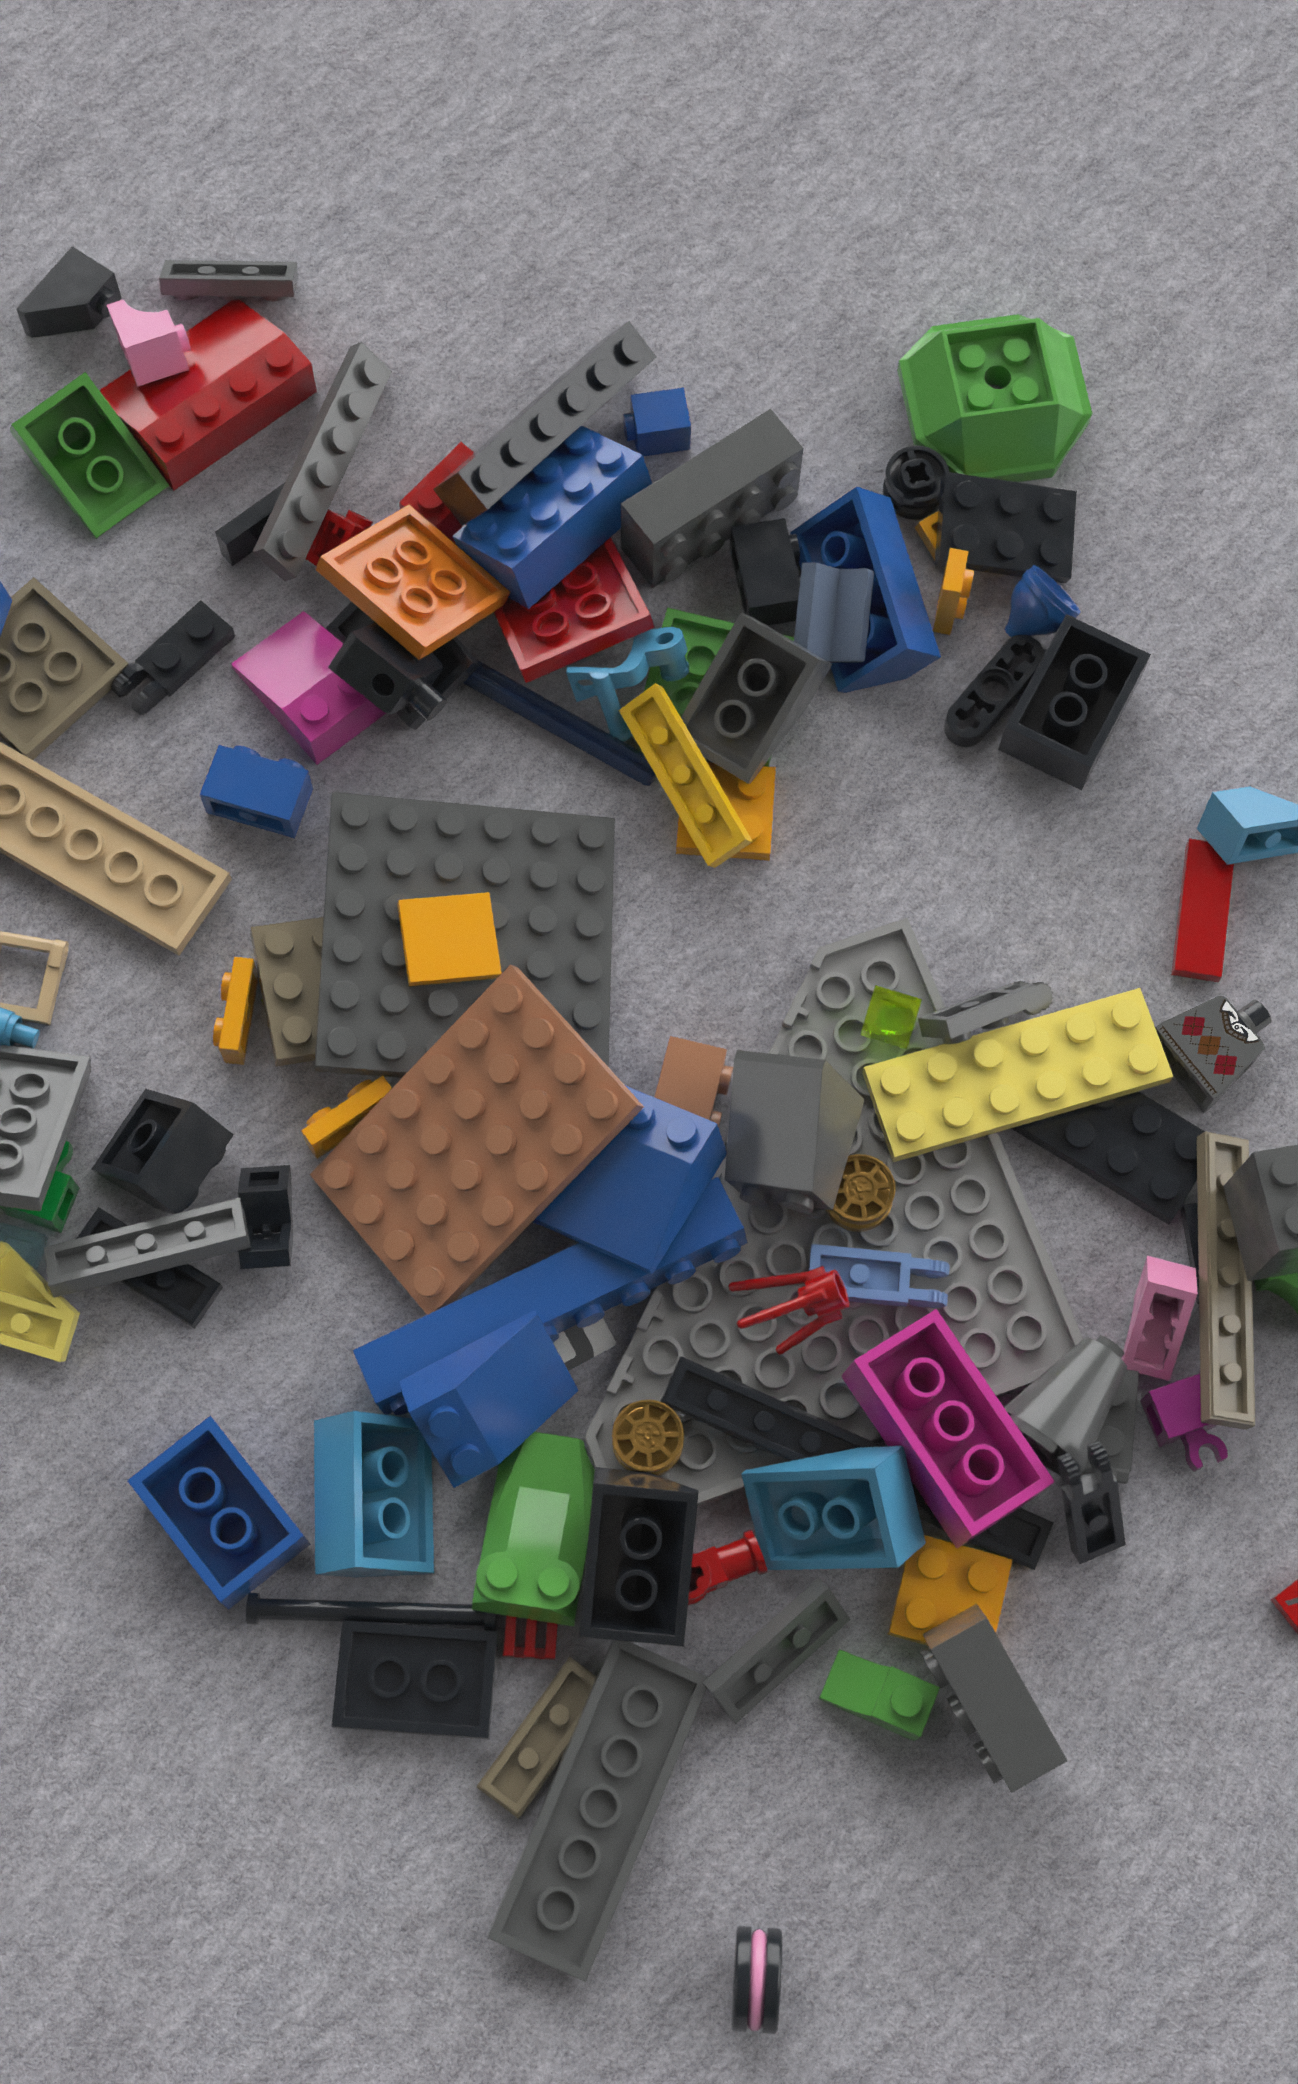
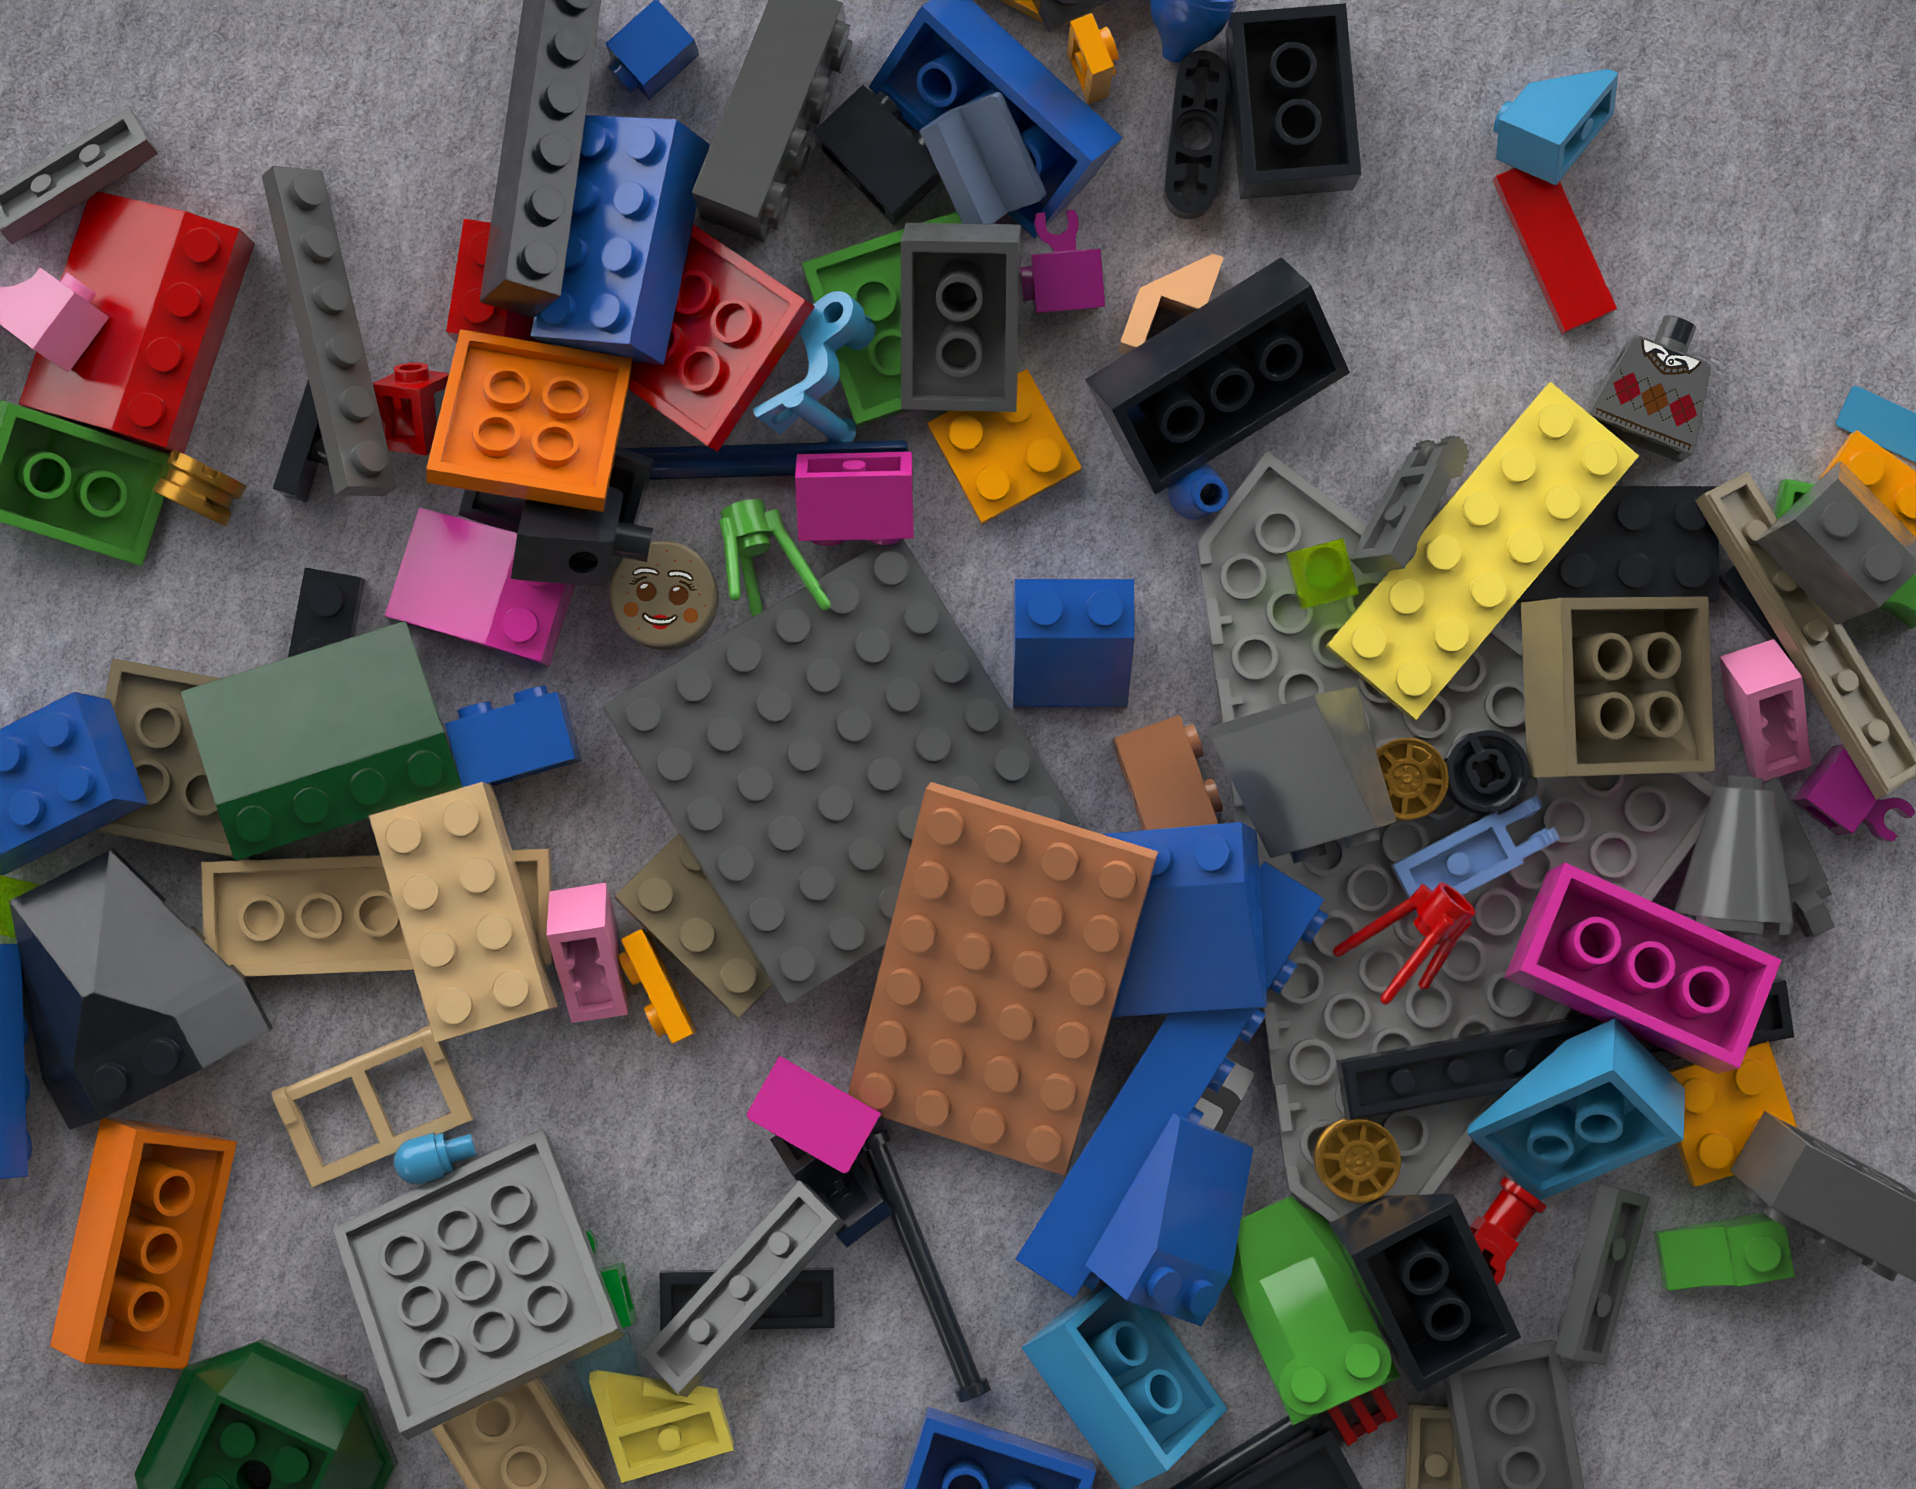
camera: 30 degrees left, 15 degrees up
(127, 708) = (320, 740): none -> slope
(140, 870) = (463, 911): none -> tan brick
(163, 1151) = (684, 1179): black slope -> none
(169, 507) = (199, 487): none -> pearl gold wheel
(203, 953) = (586, 952): none -> bright pink arch
(282, 1160) = (812, 1115): none -> dark pink panel
(285, 1323) = (924, 1268): none -> black bar
(330, 1126) = (833, 1044): light orange plate -> none
(426, 760) = (665, 599): none -> dark tan head
(449, 939) = (829, 783): light orange piece -> none
(512, 751) = (747, 533): none -> bright green plant
(598, 774) = (854, 497): none -> dark pink brick
(684, 952) = (1072, 642): none -> blue slope
(685, 776) = (948, 447): yellow plate -> none
(832, 925) = (1185, 493): none -> blue cone
(840, 720) = (1066, 275): none -> magenta brick
(904, 841) = (1218, 375): none -> black brick
(917, 780) = (1176, 292): none -> light nougat slope
(921, 1222) = (1486, 771): none -> black wheel
(1056, 1220) = (1617, 686): none -> dark tan slope
(1091, 1505) = (1820, 949): black hinge -> none

